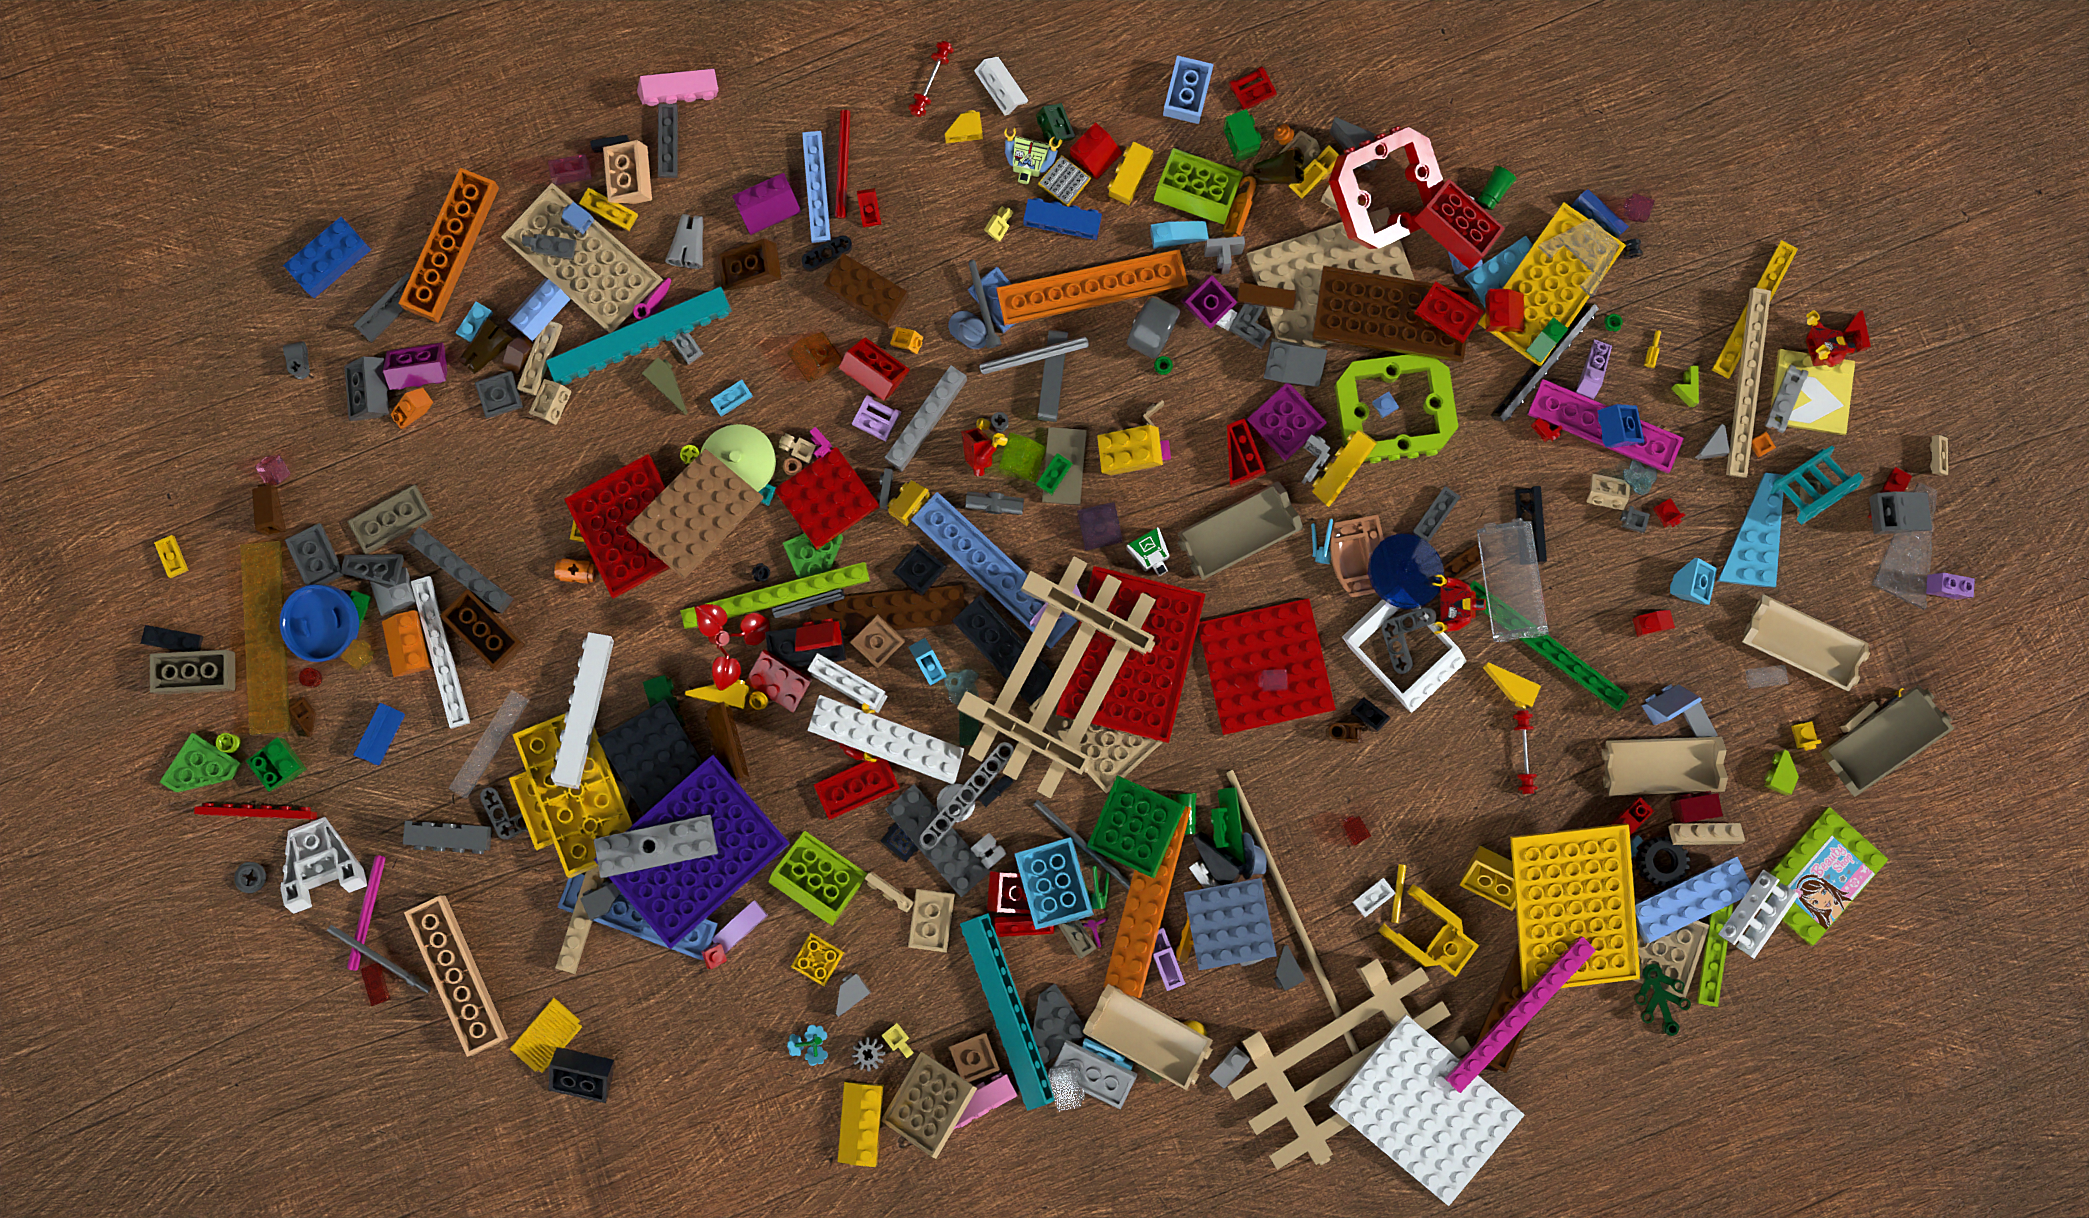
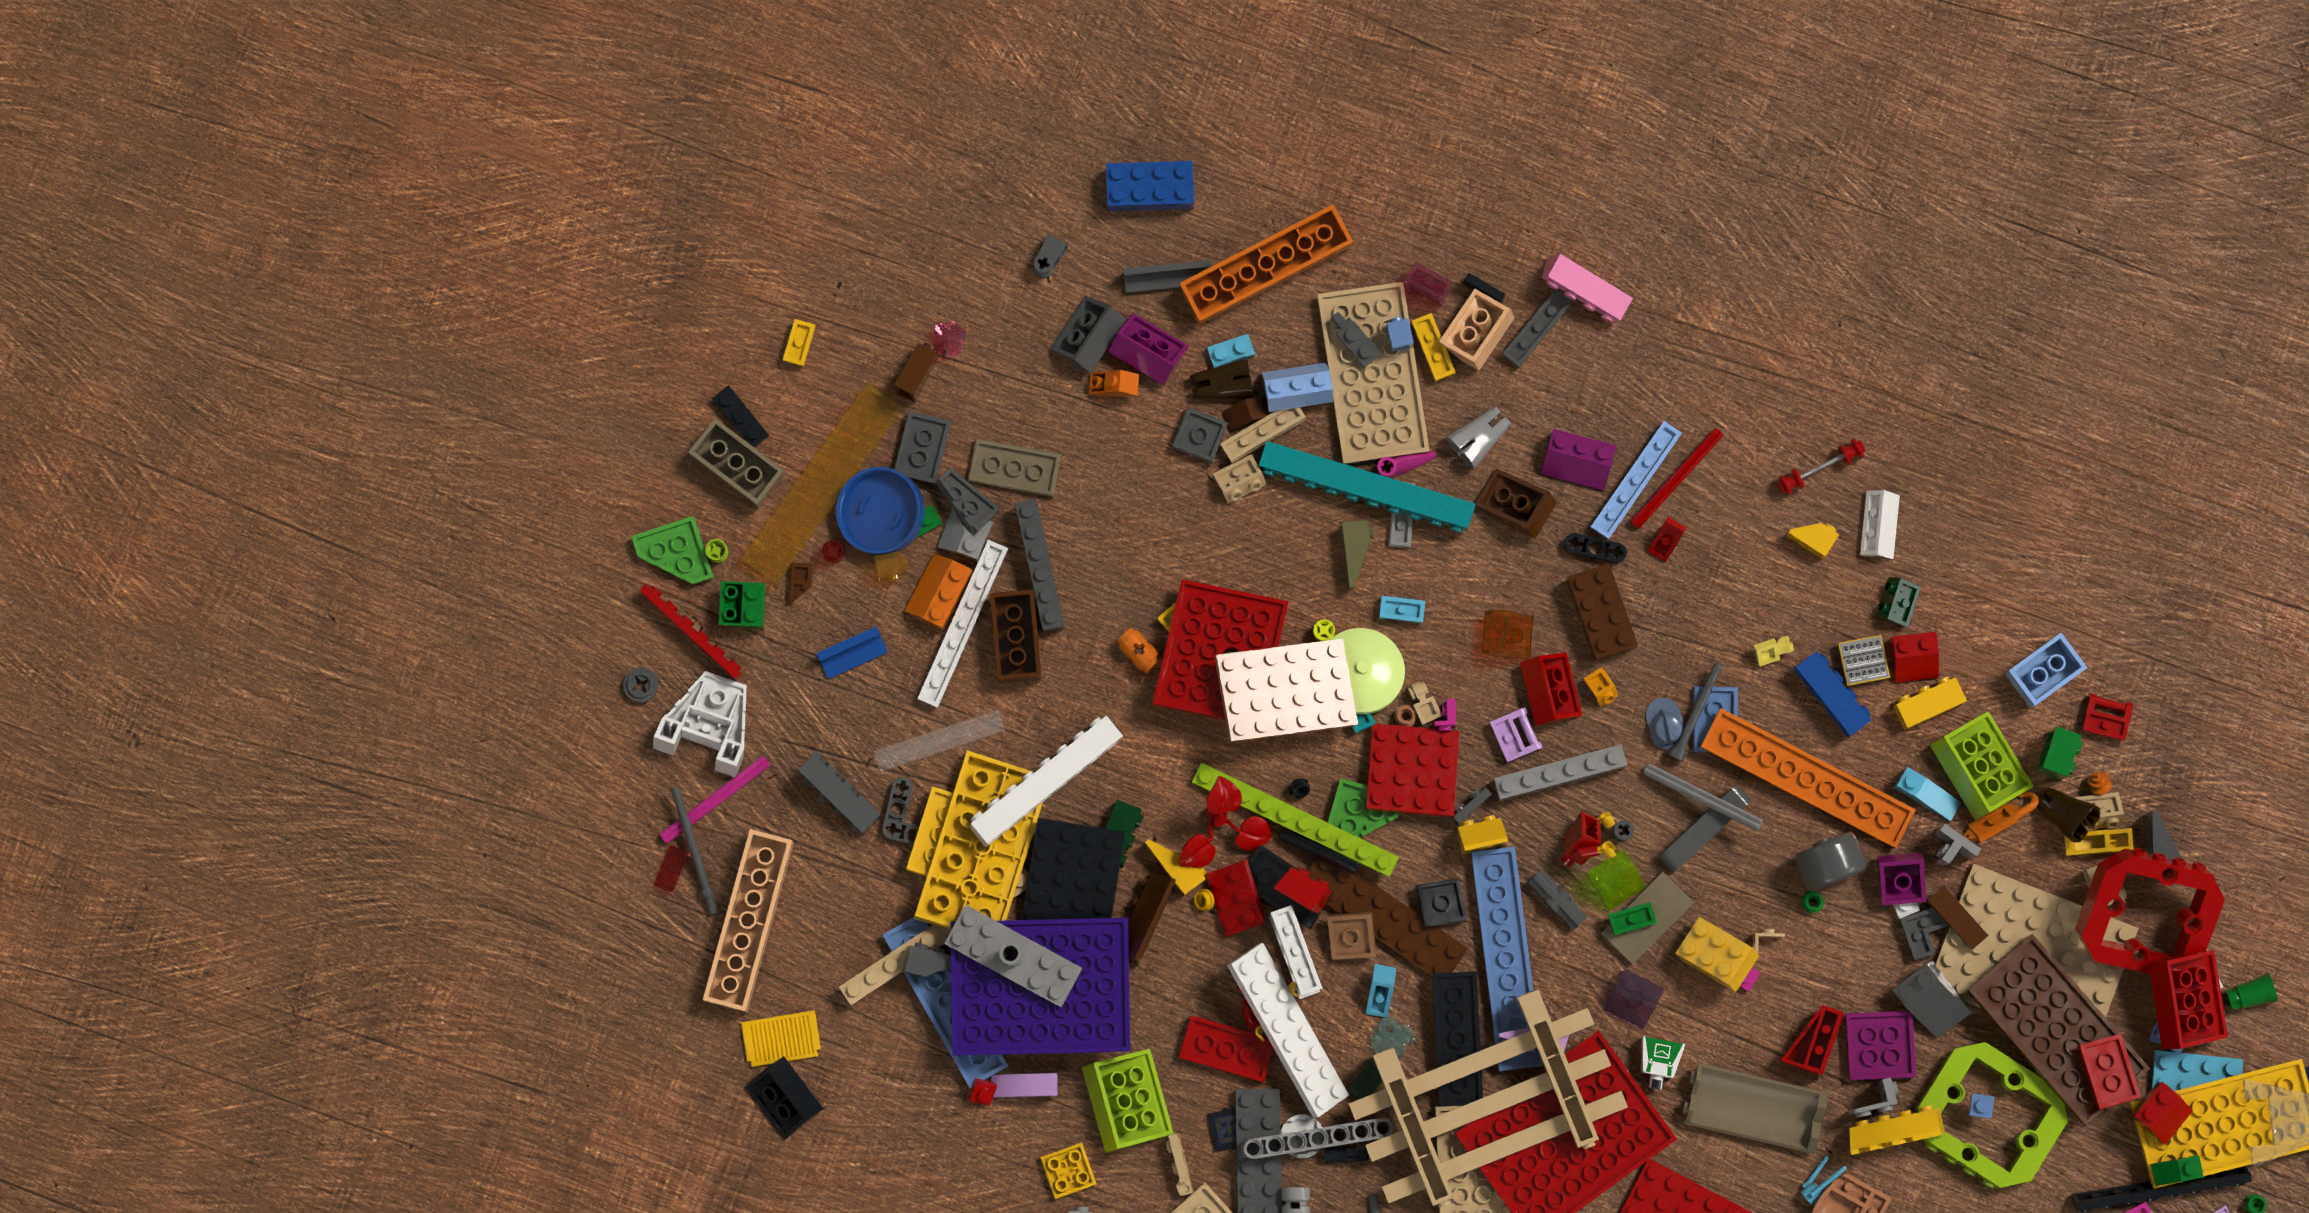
camera: 40 degrees right, 0 degrees up
(1029, 156) = (1850, 611): torso -> none

